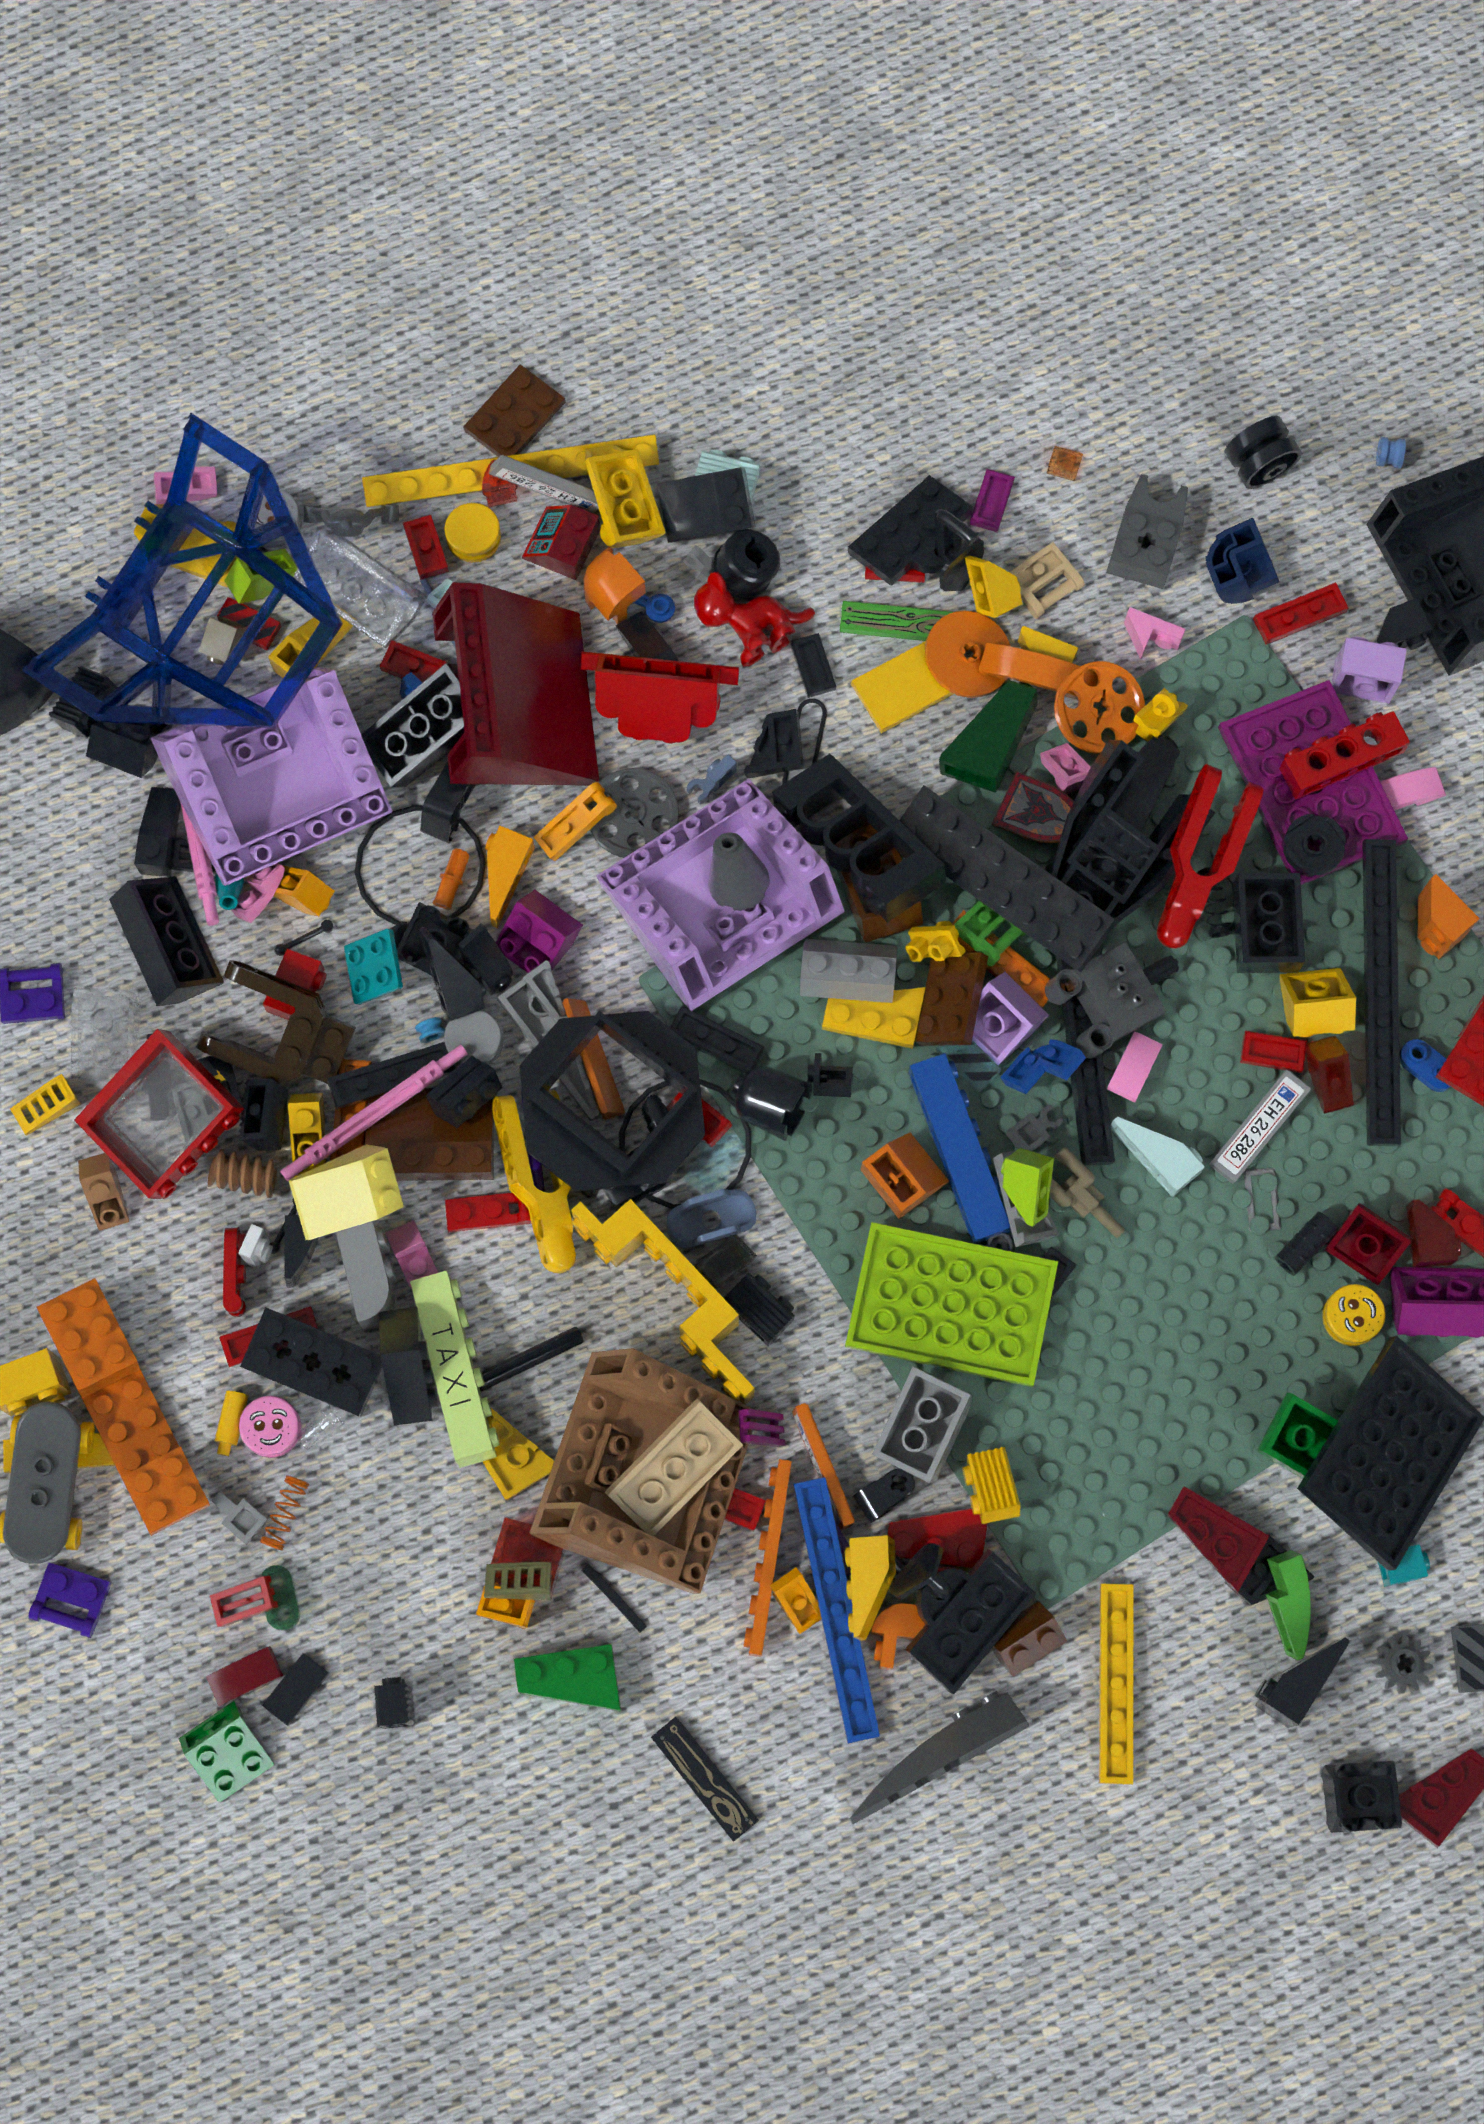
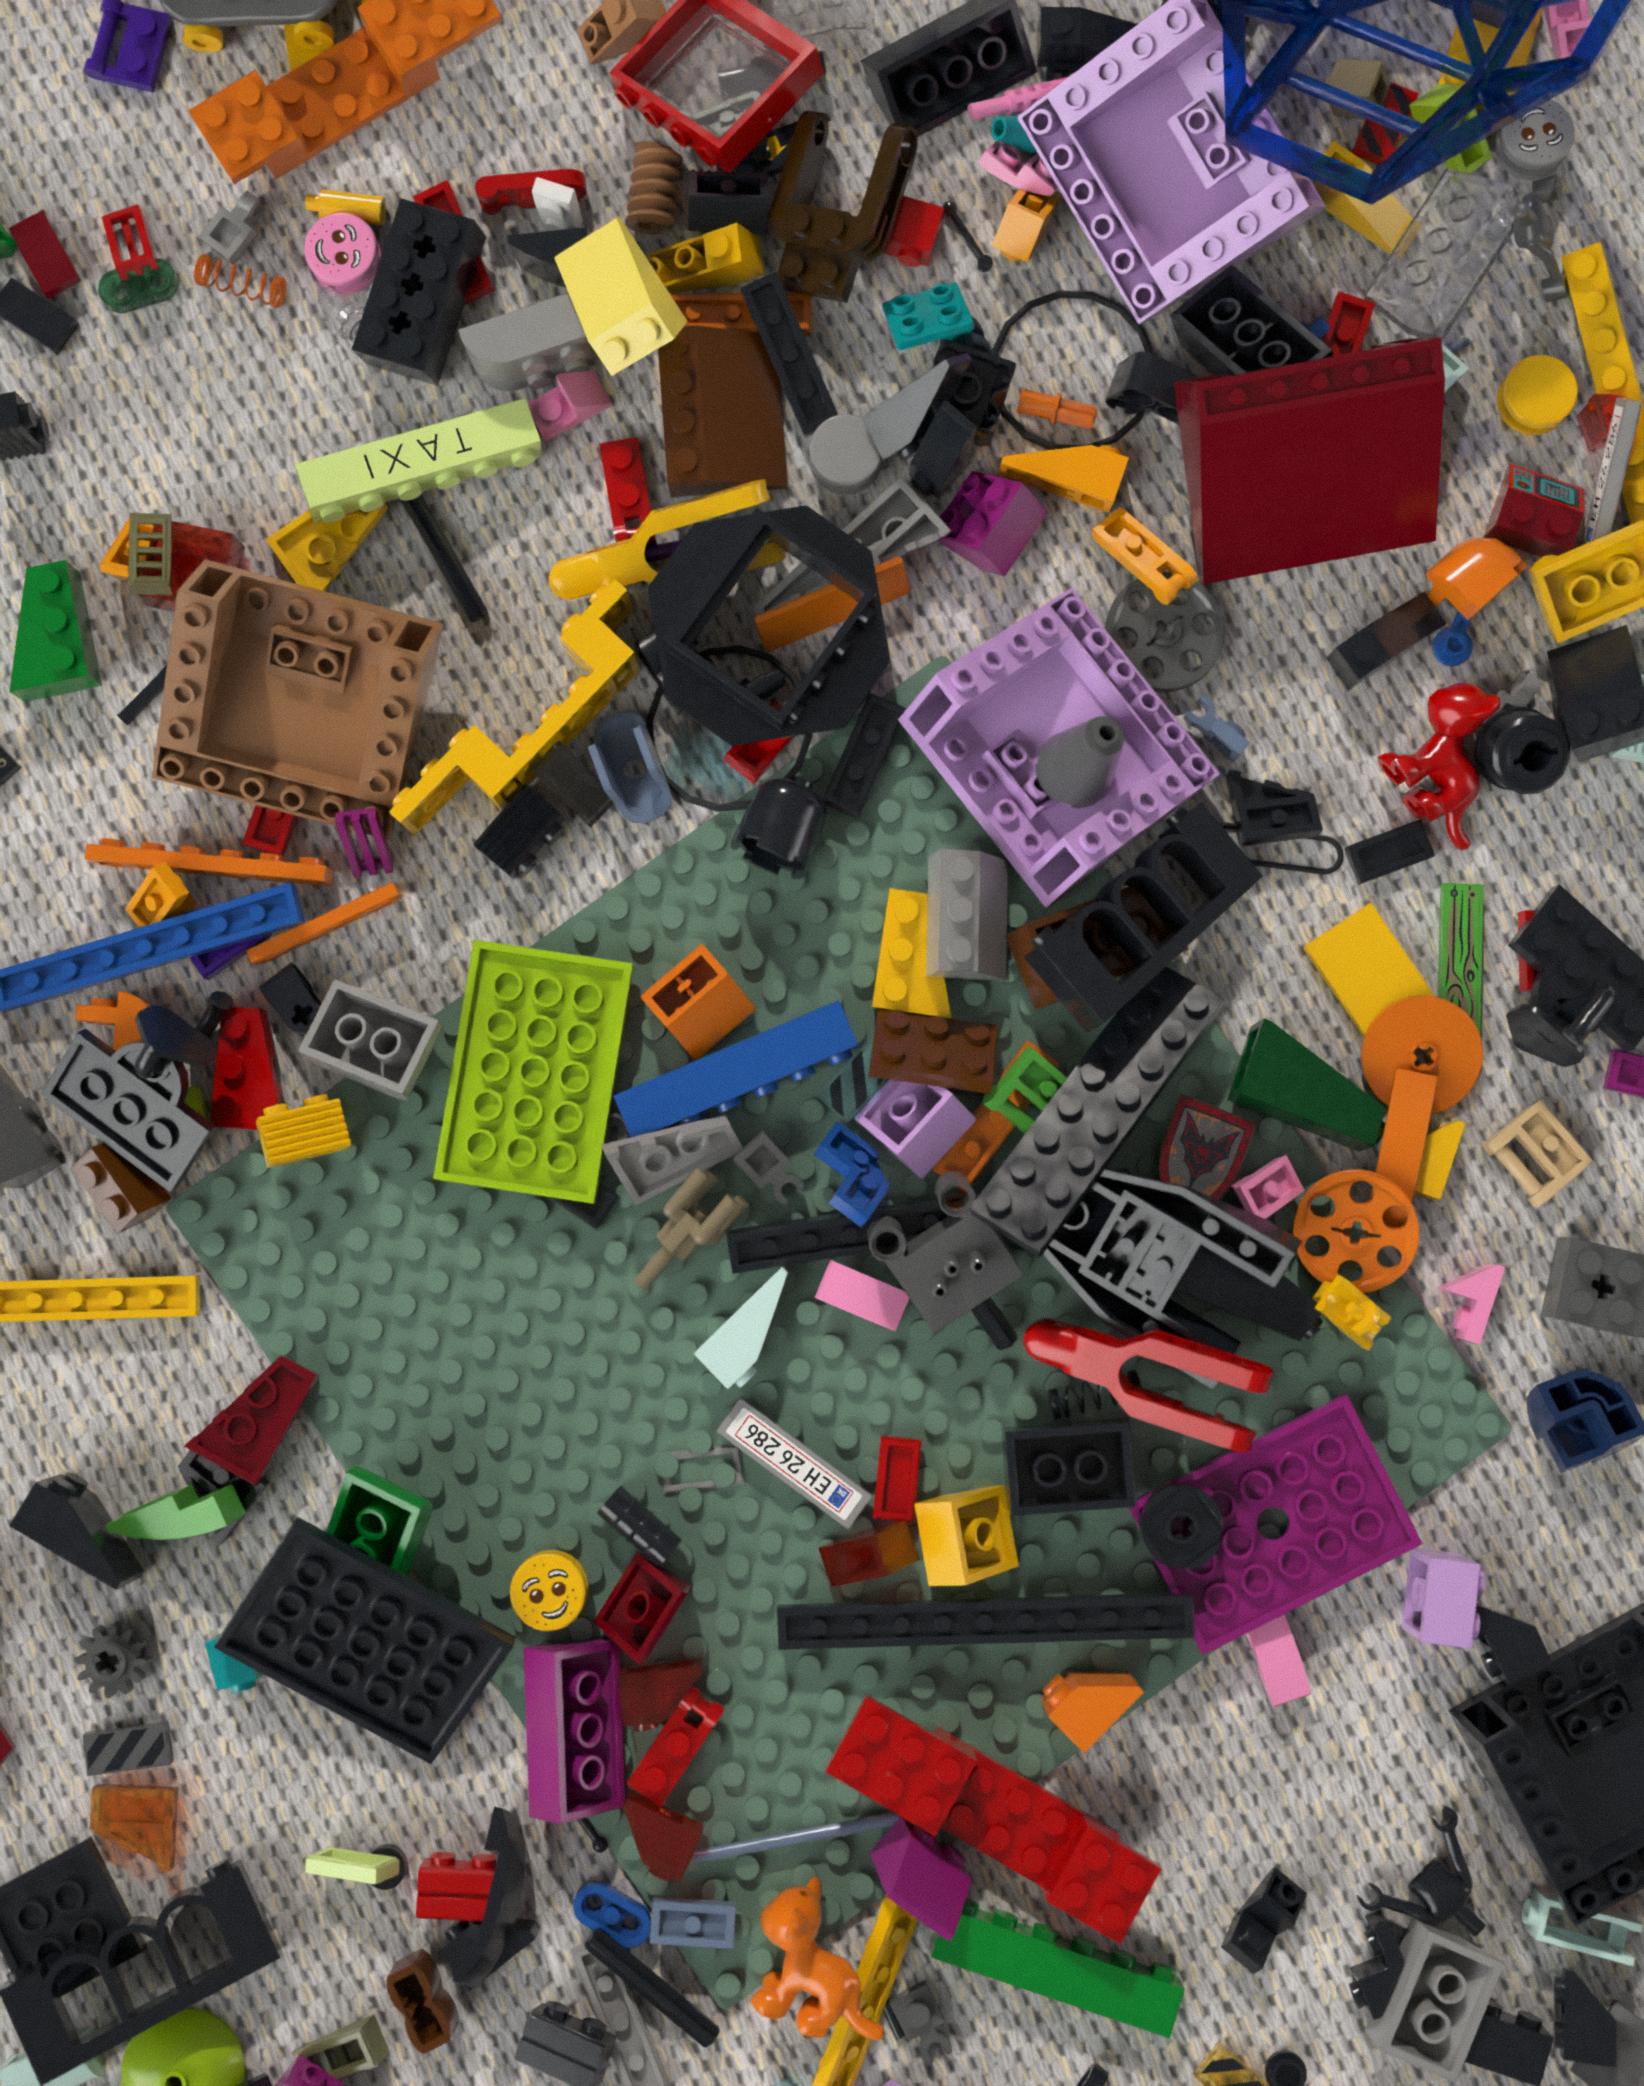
camera: 90 degrees right, 10 degrees up
(373, 1112) = (735, 333): bright pink axle -> none
(405, 1366) = (415, 393): black wedge -> none
(425, 547) = (1510, 336): red plate -> none
(430, 1029) = (854, 399): dark azure bush -> none
(464, 1091) = (768, 440): black brick -> none
(657, 695) = (1322, 642): red brick -> none
(674, 1468) = (294, 730): tan plate -> none
(829, 1080) = (818, 901): black bracket -> none
(871, 1575) = (184, 984): yellow slope -> none
(934, 942) = (1007, 1024): yellow hips -> none
(992, 587) = (1515, 1081): yellow slope -> none
(1028, 1183) = (684, 1157): lime slope -> none
(1301, 613) = (1520, 1504): red plate -> none
(1305, 779) = (1336, 1628): red brick -> none
(1426, 1067) = (890, 1685): blue plate -> none

